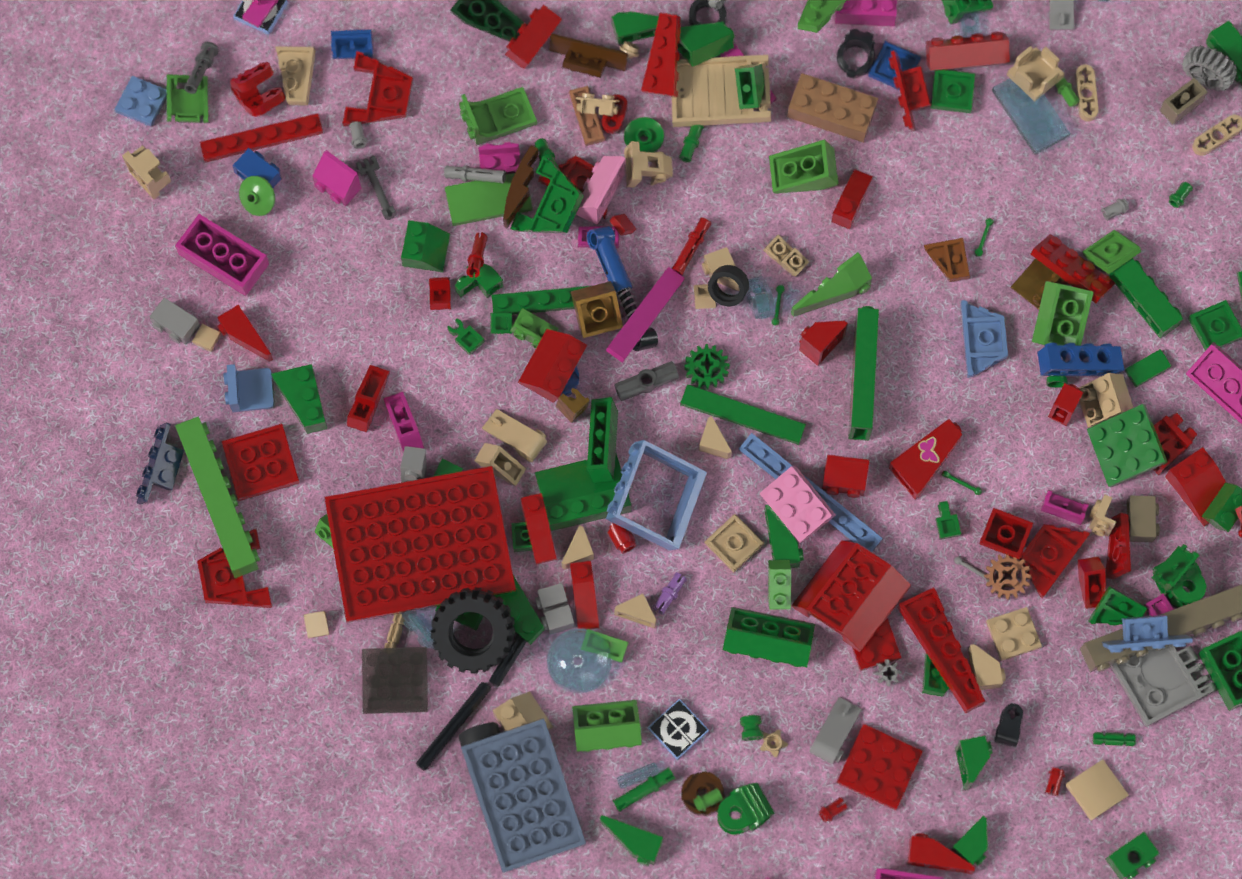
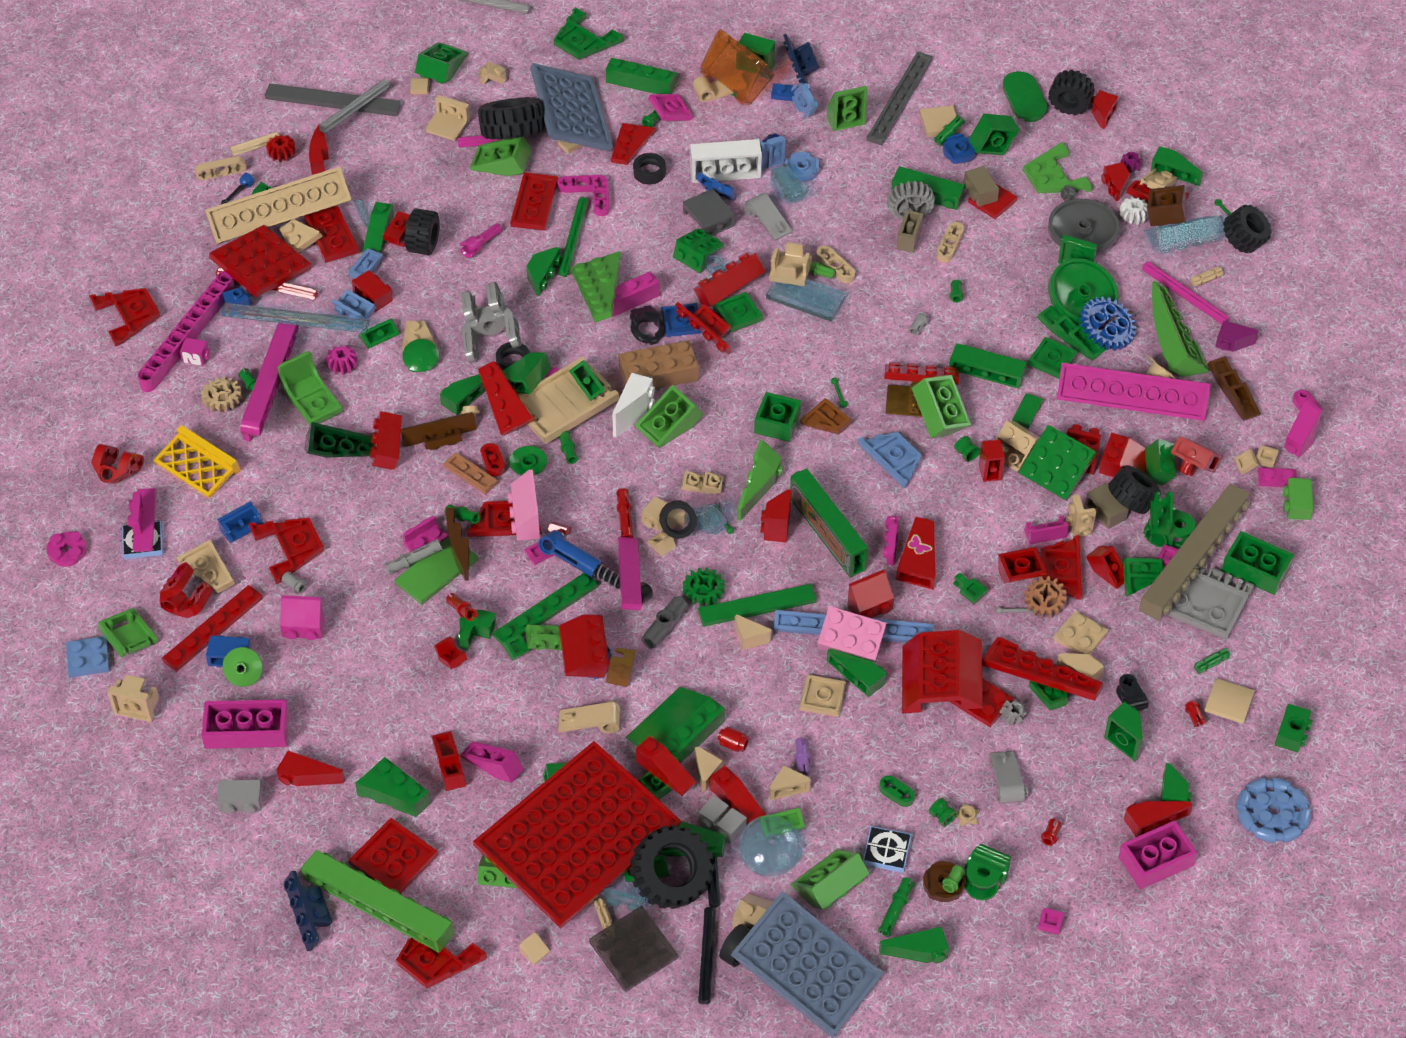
camera: 35 degrees left, 20 degrees down
(204, 61) = (123, 598): dark grey pin -> none
(206, 337) = (275, 794): tan tile -> none
(248, 389) = (342, 809): medium blue bracket -> none
(387, 210) = (362, 622): dark grey hinge -> none
(413, 464) = (526, 777): light grey brick -> none
(425, 246) = (410, 628): green slope -> none
(467, 338) = (496, 673): green plate -> none
(497, 115) = (399, 508): bright green bracket -> none
(503, 463) = (588, 734): tan slope -> none
(557, 205) = (501, 537): green wing -> none
(589, 103) = (468, 458): tan hinge -> none
(597, 309) = (588, 590): pearl gold brick -> none
(602, 440) = (666, 676): green brick -> none
(637, 165) = (553, 472): tan tile -> none
(637, 775) = (882, 900): clear light blue axle -> none
(686, 504) = (757, 665): medium blue window -> none
(733, 677) = (896, 791): none -> green beam
(769, 637) = (904, 742): green slope -> none
(777, 135) = (633, 403): none -> white slope
(779, 584) = (883, 697): bright green brick -> none
(851, 199) = (722, 420): red slope -> none
(879, 767) = (1060, 782): red plate -> none
(902, 231) = (777, 416): none -> green brick
(913, 425) = (891, 539): none -> dark pink hinge
(977, 490) = (974, 557): green hinge -> none
(1071, 365) = (977, 426): blue brick -> none
(1111, 251) = (939, 349): bright green tile -> none
(1118, 548) = (1110, 532): red wing -> none
(1144, 632) = (1178, 563): medium blue bracket -> none
(1175, 521) = (1133, 489): none -> black tyre

